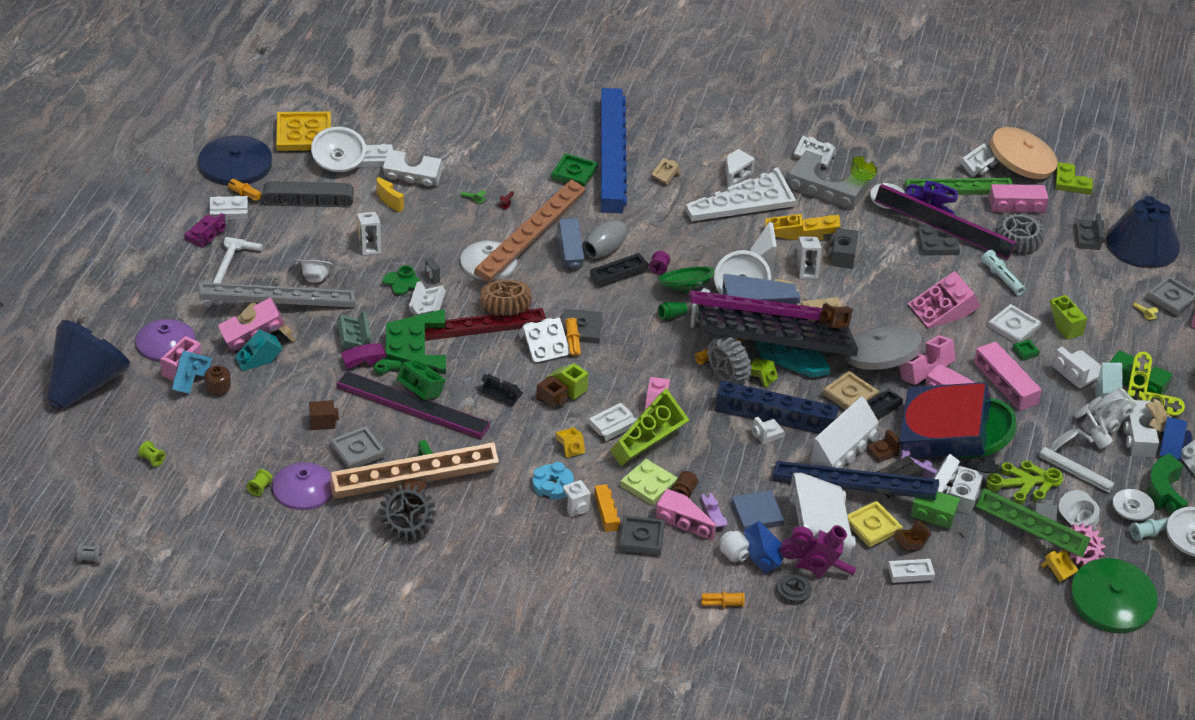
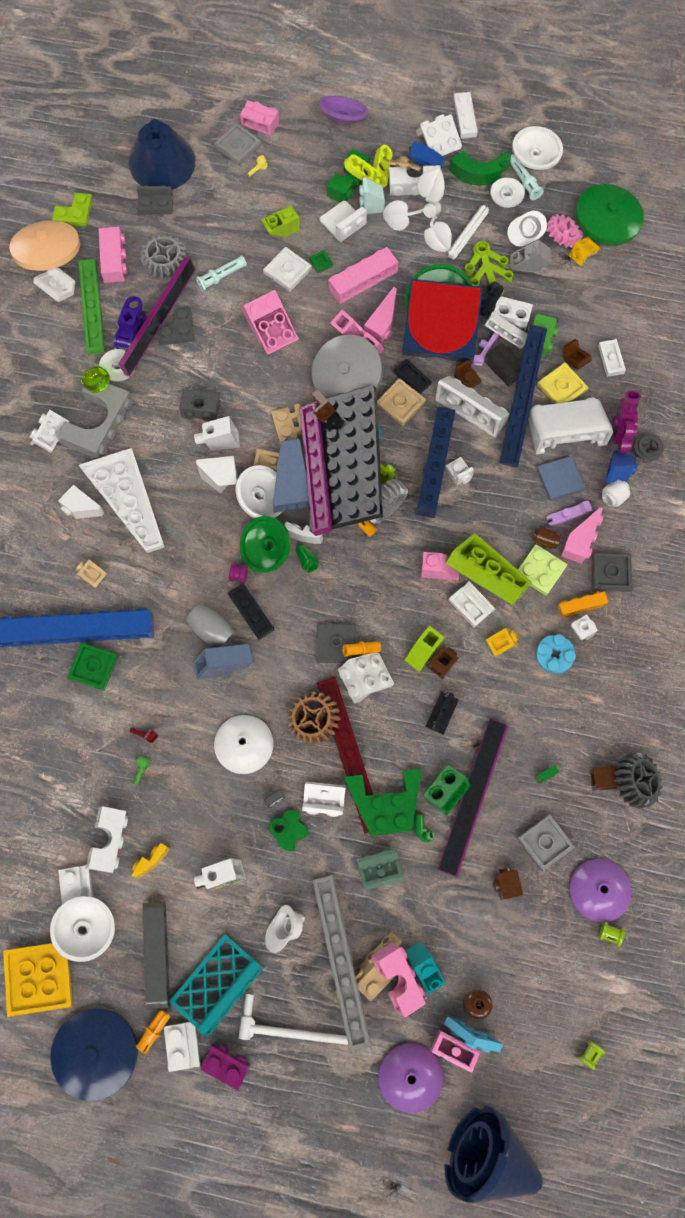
camera: 90 degrees left, 30 degrees up
(267, 234) = (226, 1000): none -> teal fence
(370, 352) = (413, 854): magenta slope -> none
(419, 468) = (579, 782): light nougat brick -> none
(529, 231) = (203, 702): nougat plate -> none
(723, 599) = (673, 502): light orange axle -> none
(793, 226) = (171, 440): yellow slope -> none
(1033, 522) = (552, 261): bright green tile -> none
(1116, 411) = (405, 189): white bracket -> none

